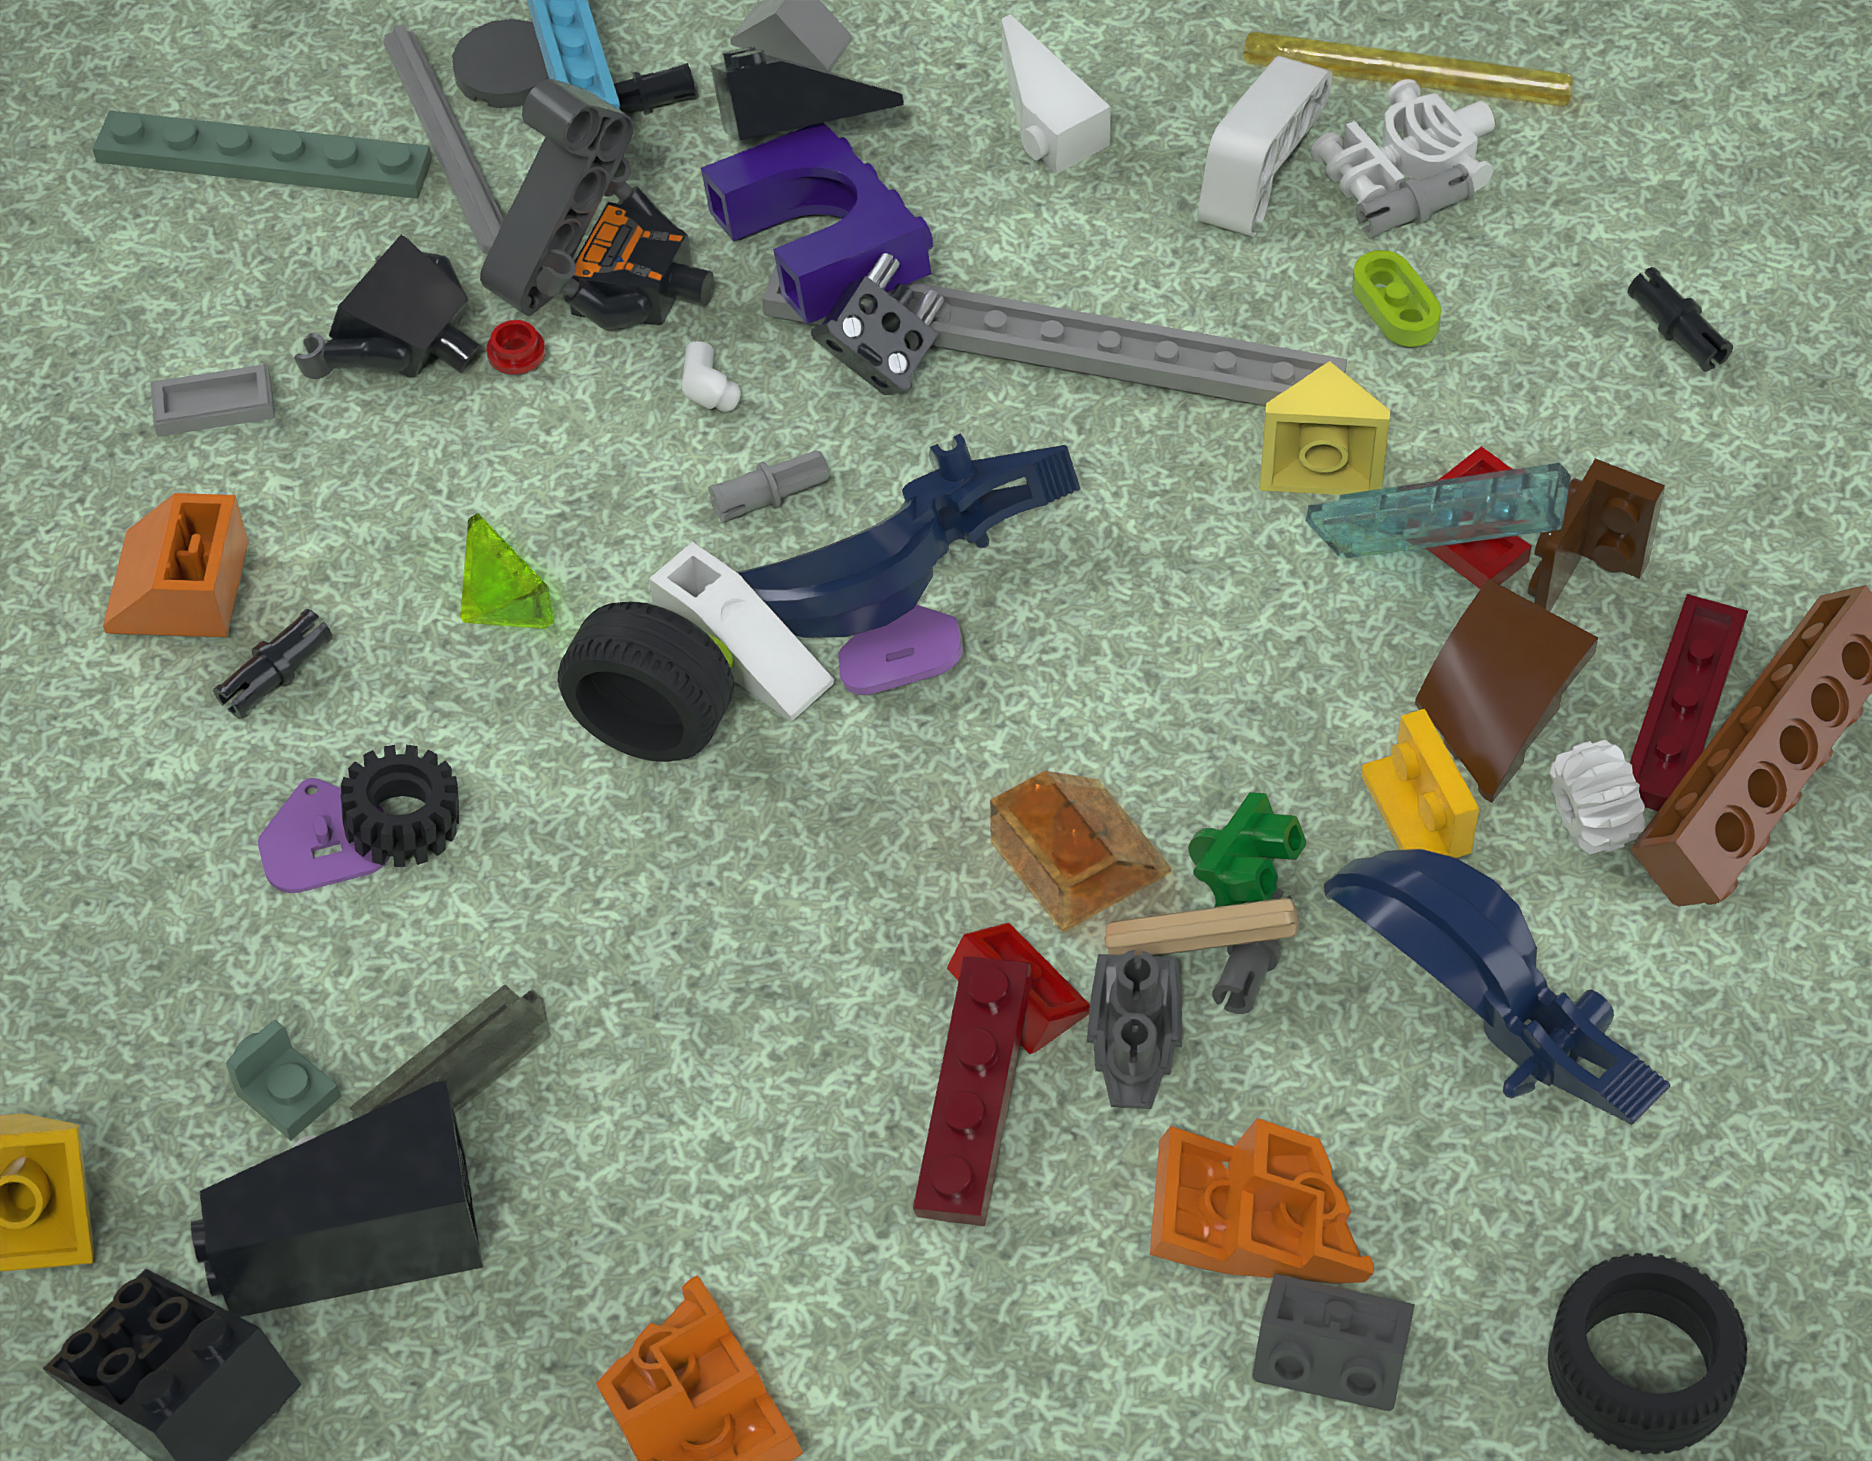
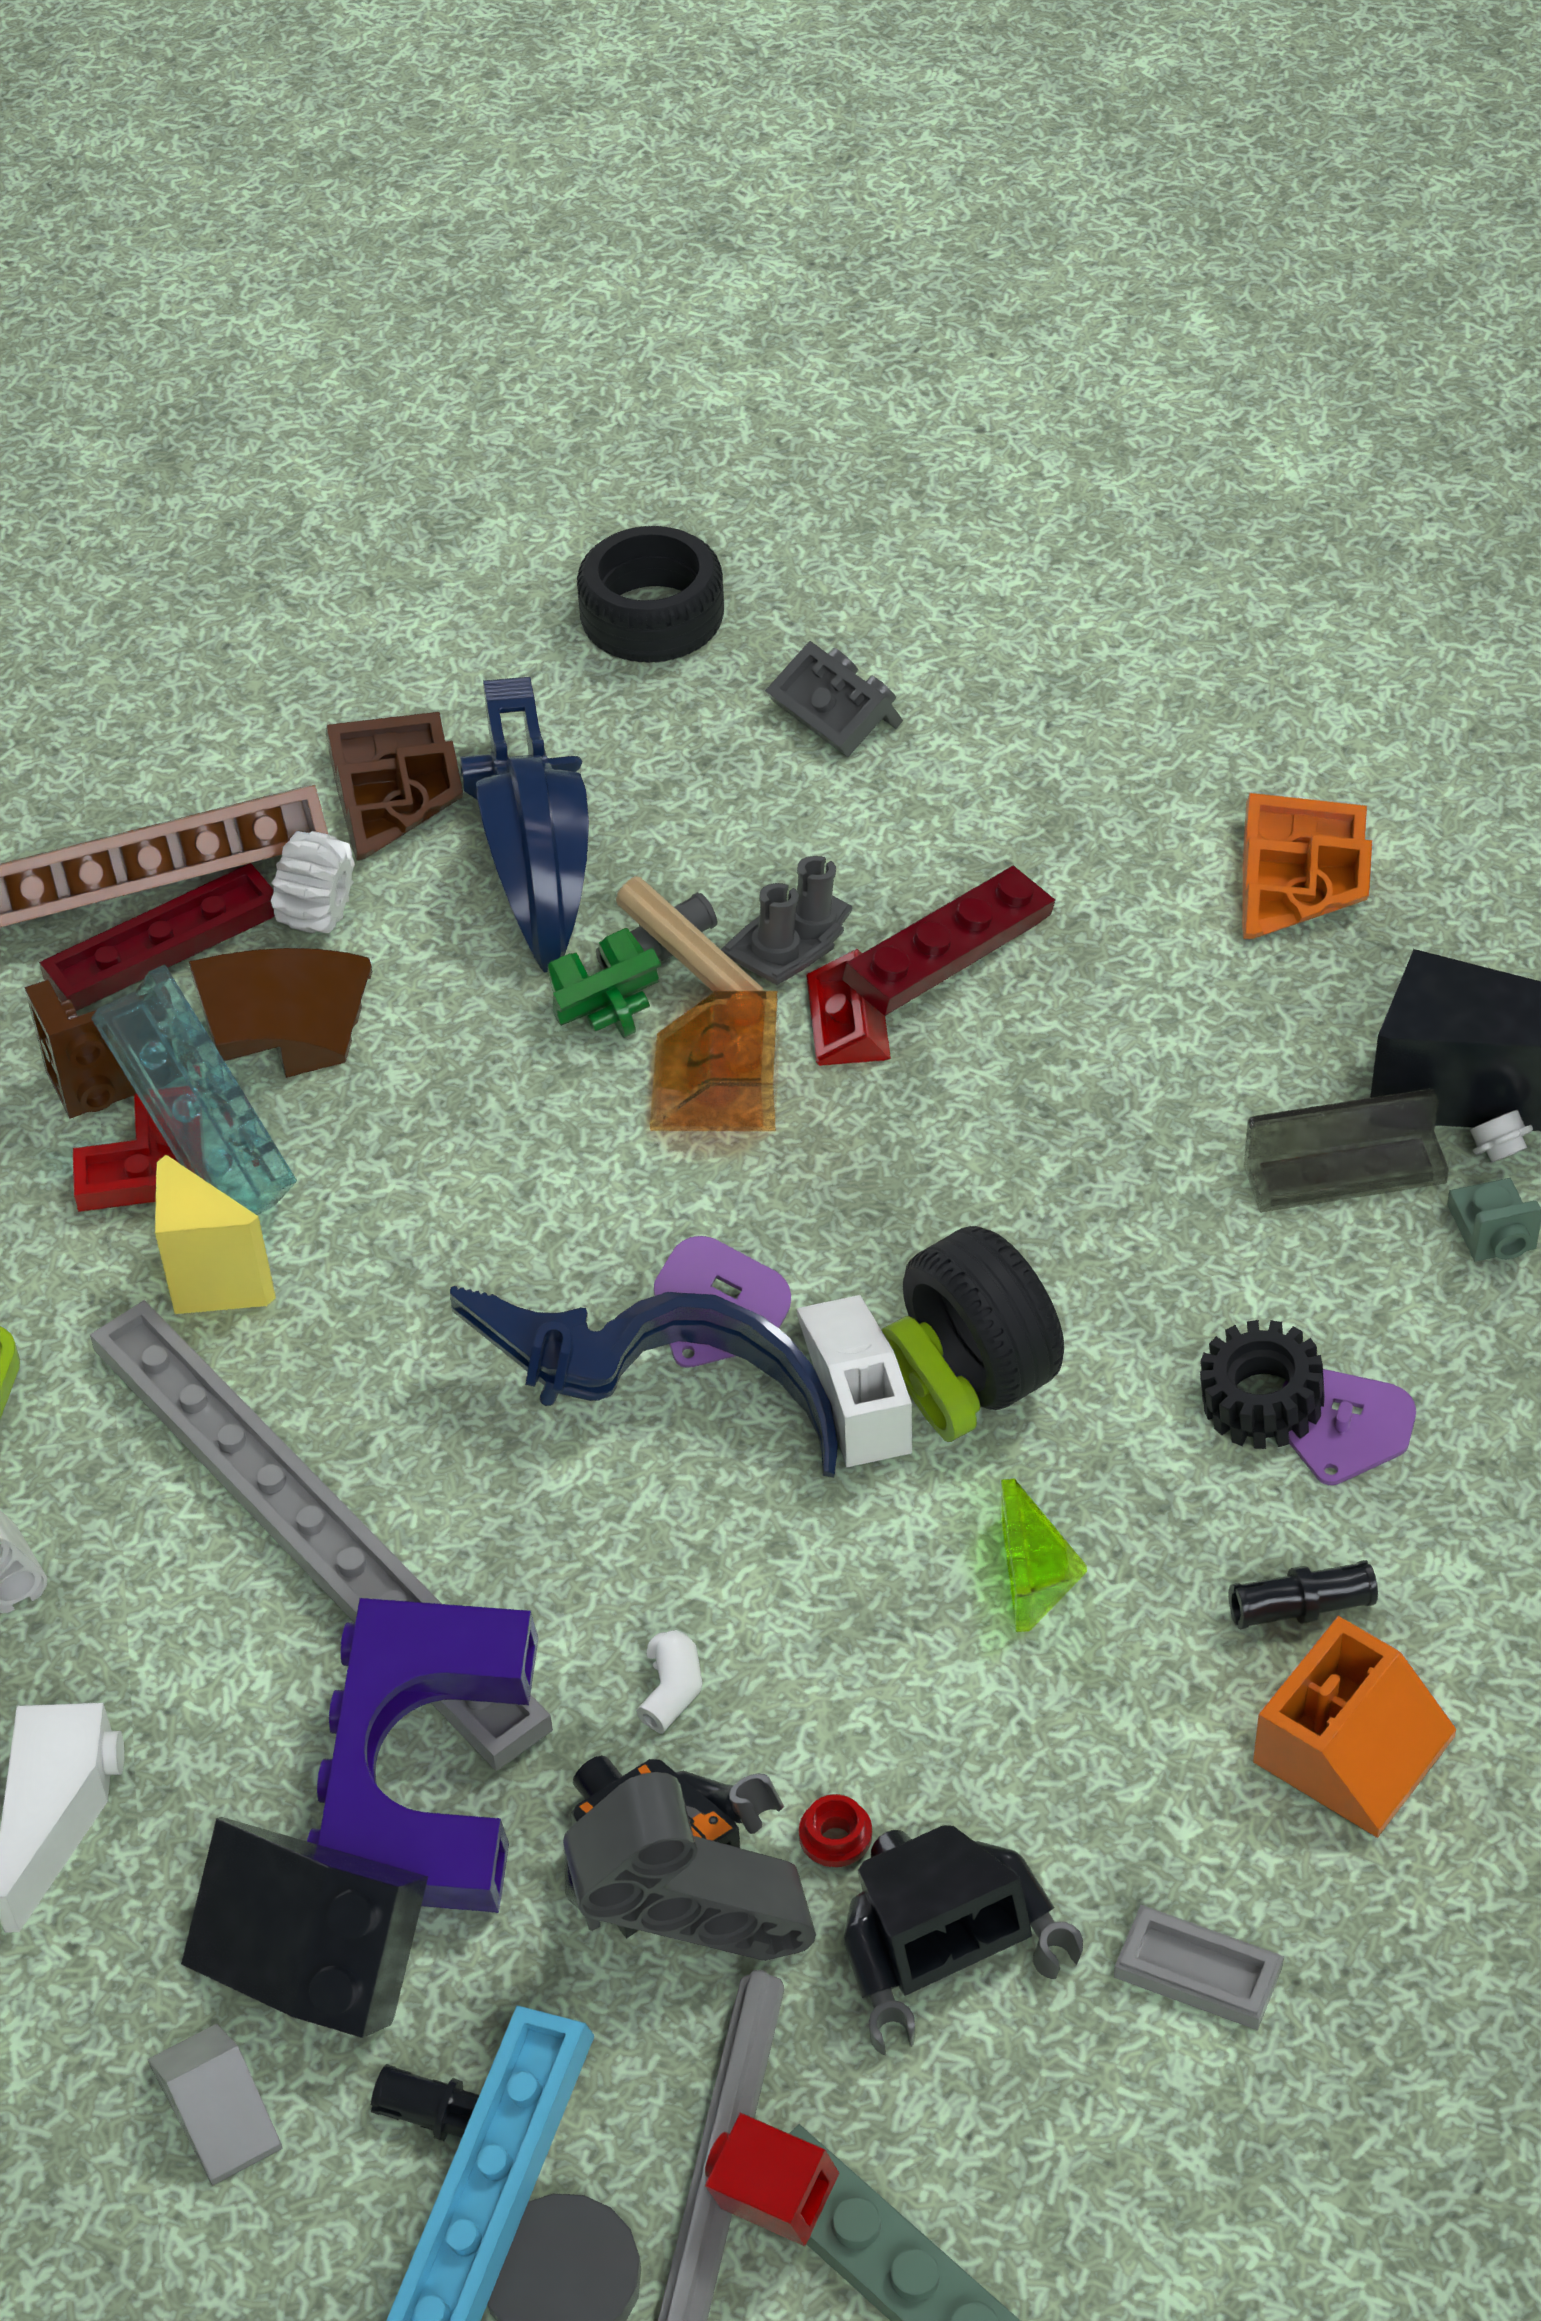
camera: 145 degrees left, 5 degrees down
(397, 114) = (770, 2178): none -> red brick
(768, 485) = (703, 1524): light grey axle -> none
(877, 332) = (480, 1573): black piece -> none
(1260, 1216) = (816, 796): orange slope -> none
(1423, 791) = (428, 960): yellow bracket -> none
(1677, 989) = (391, 776): none -> reddish brown slope

